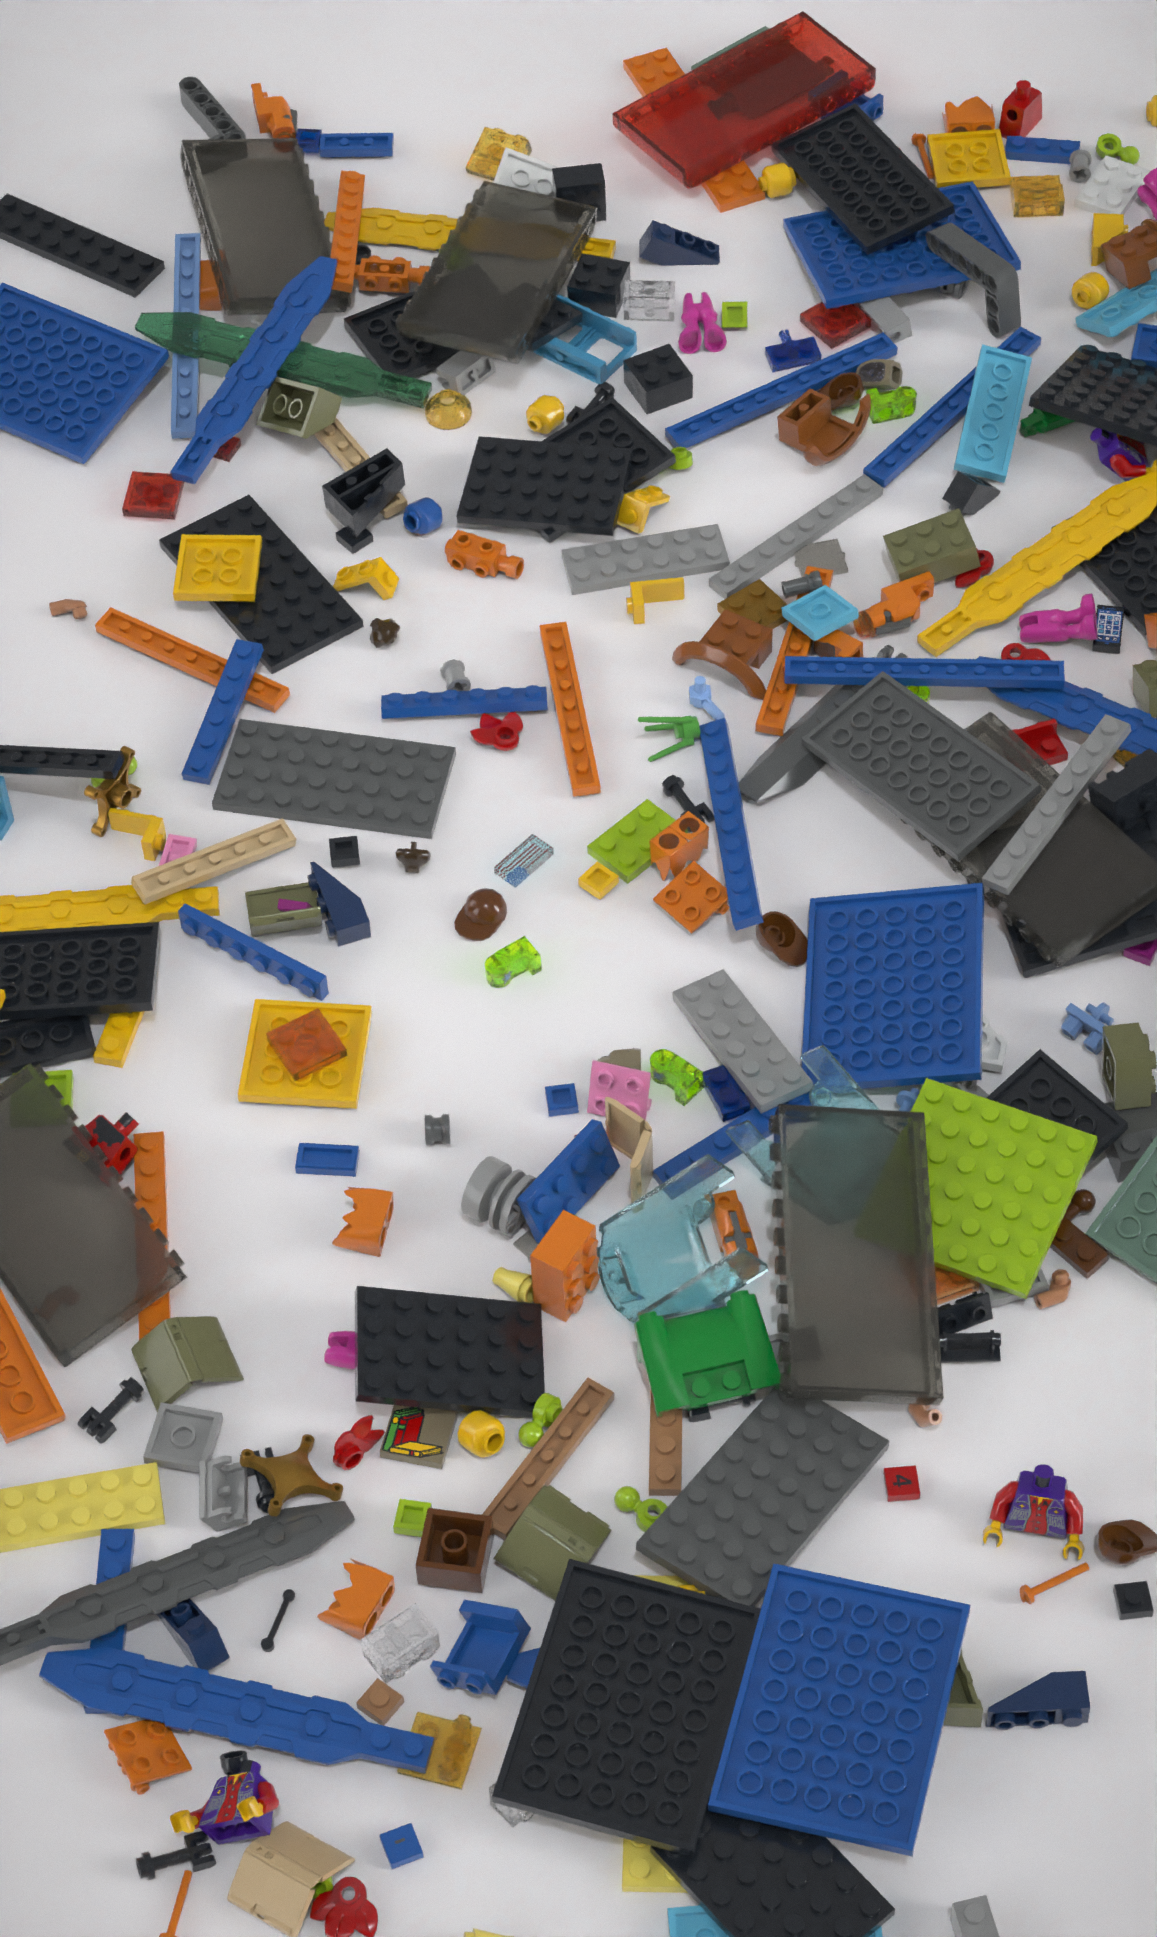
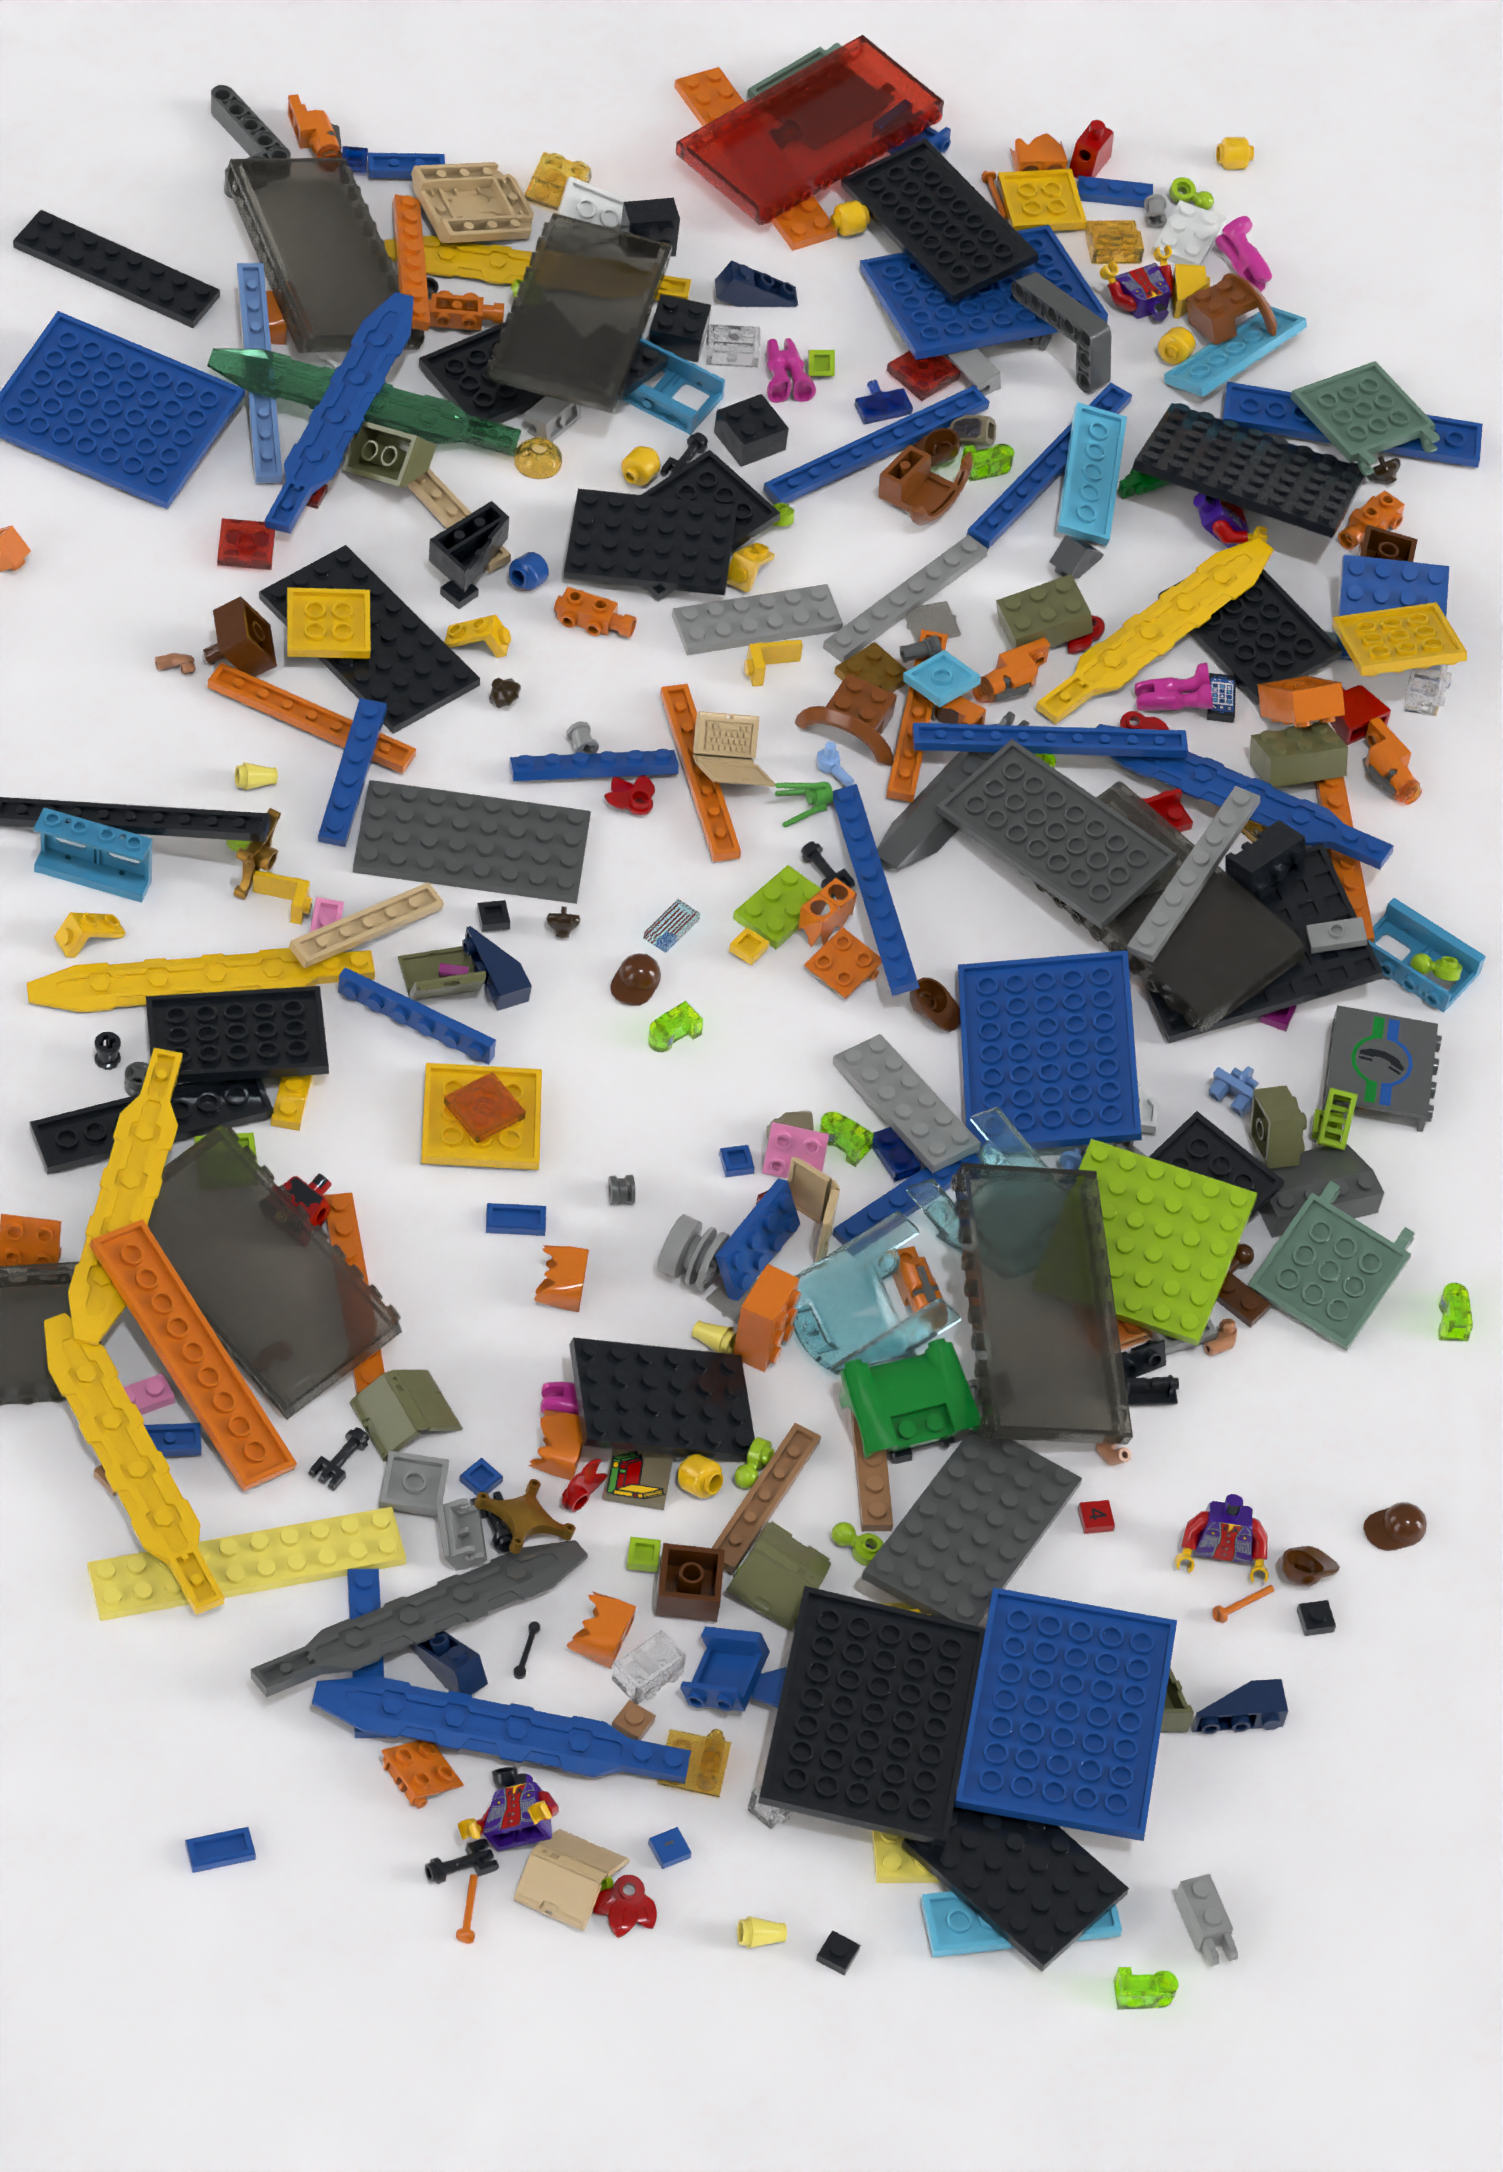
camera: 15 degrees left, 0 degrees up
(127, 716) = (253, 776): none -> light yellow cone
(131, 583) = (242, 638): none -> reddish brown brick
(255, 1432) = (481, 1477): none -> blue tile
(340, 1409) = (562, 1443): none -> orange piece
(414, 175) = (472, 202): none -> tan wedge
(597, 684) = (726, 748): none -> tan piece
(1060, 239) = (1142, 290): none -> torso

